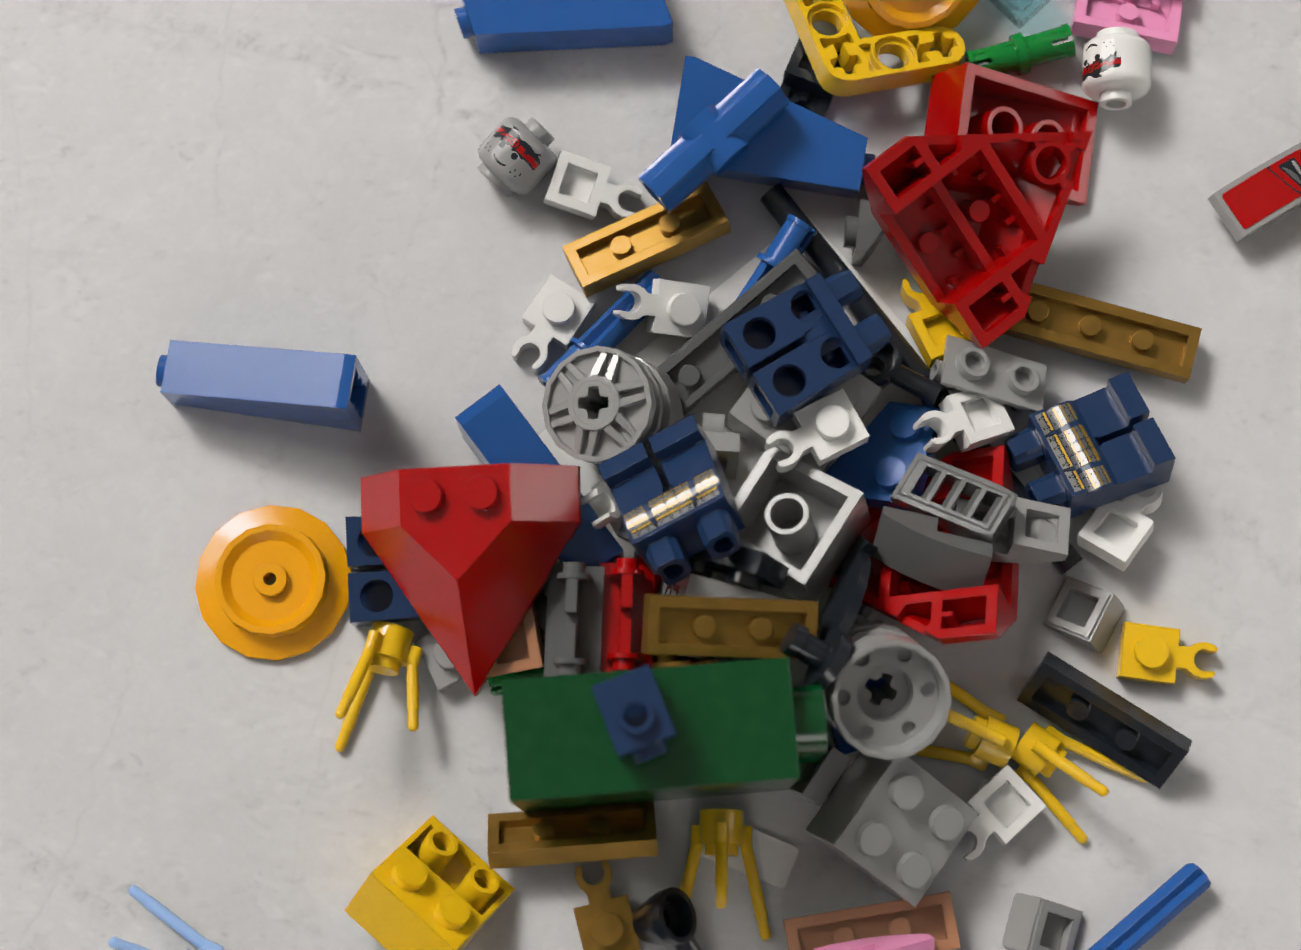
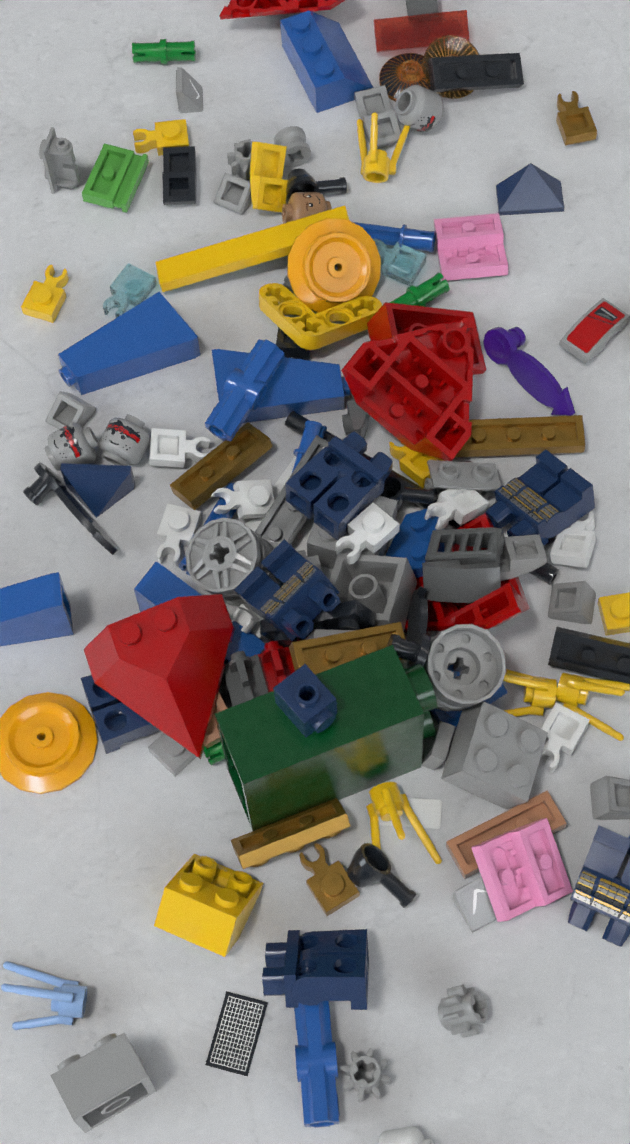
camera: 15 degrees left, 15 degrees down
(384, 653) = (131, 759): yellow plant -> none
(393, 185) = (49, 480): none -> black brick
(437, 142) = (71, 445): none -> light grey head
(453, 80) = (69, 409): none -> light grey slope
(459, 214) = (98, 485): none -> dark blue slope
(1116, 67) = (476, 287): white head -> none
(1148, 235) = (528, 371): none -> dark purple brick

